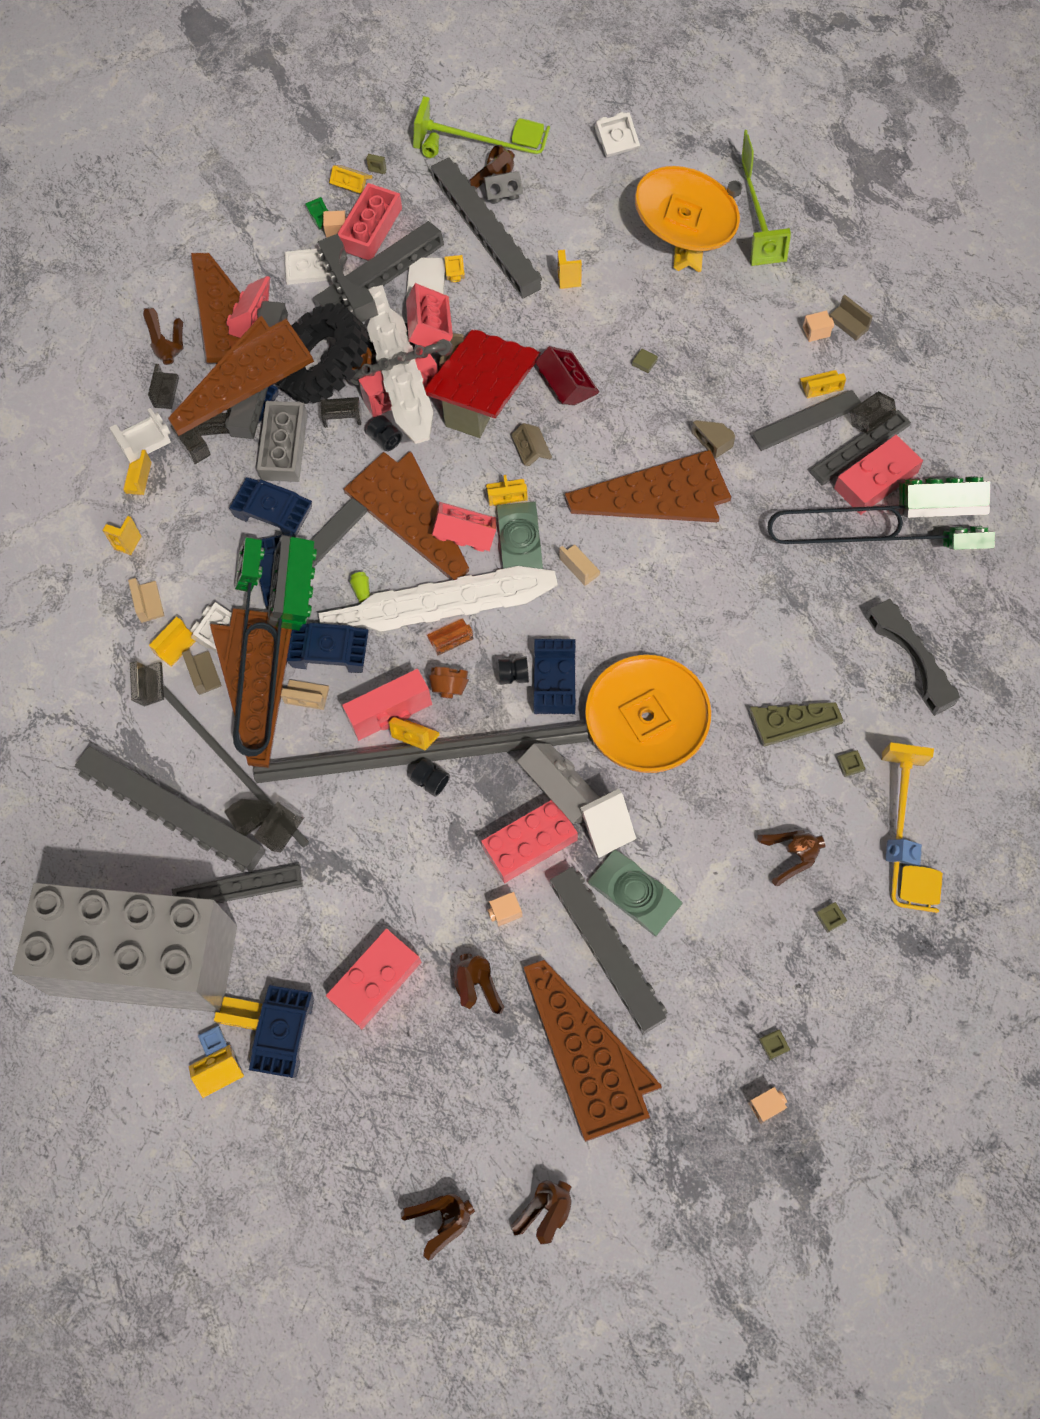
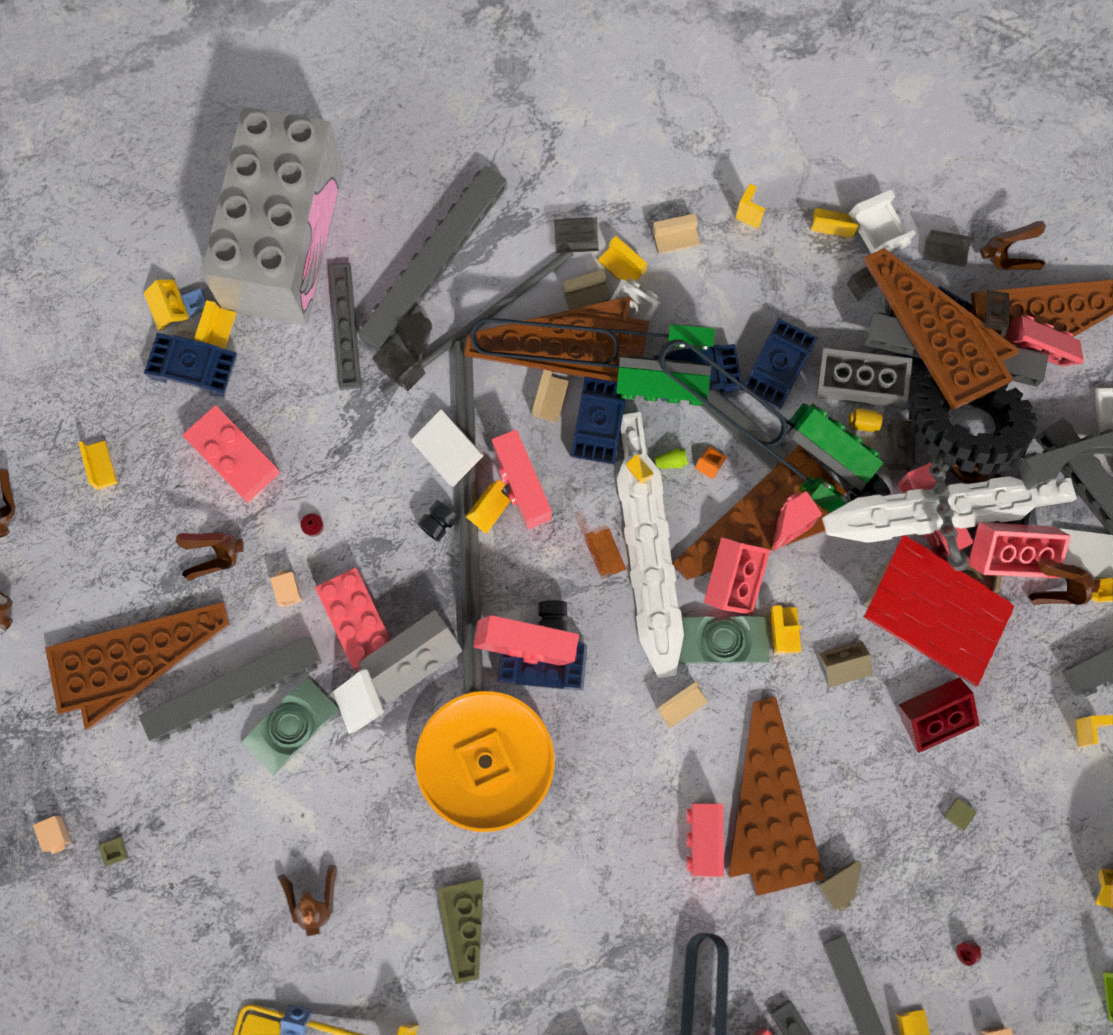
camera: 90 degrees right, 10 degrees up
(226, 333) = (996, 311): none -> clear smoke panel
(319, 440) = (865, 420): none -> yellow brick
(335, 467) = (813, 432): none -> piece
(359, 774) = (447, 448): none -> white tile
(362, 558) = (710, 462): none -> orange slope
(373, 608) = (639, 469): none -> yellow slope
(390, 1116) = (98, 464): none -> yellow panel
(415, 476) = (795, 519): none -> coral slope
(438, 899) = (315, 528): none -> dark red tile
(448, 681) = (544, 546): dark orange cone -> none
(455, 281) = (1079, 584): none -> reddish brown piece
(540, 677) = (526, 641): none -> coral brick
(692, 532) = (705, 840): none -> coral slope
(752, 348) = (968, 952): none -> dark red tile
(831, 917) = (236, 933): olive tile -> none
(851, 763) = (407, 985): olive tile -> none

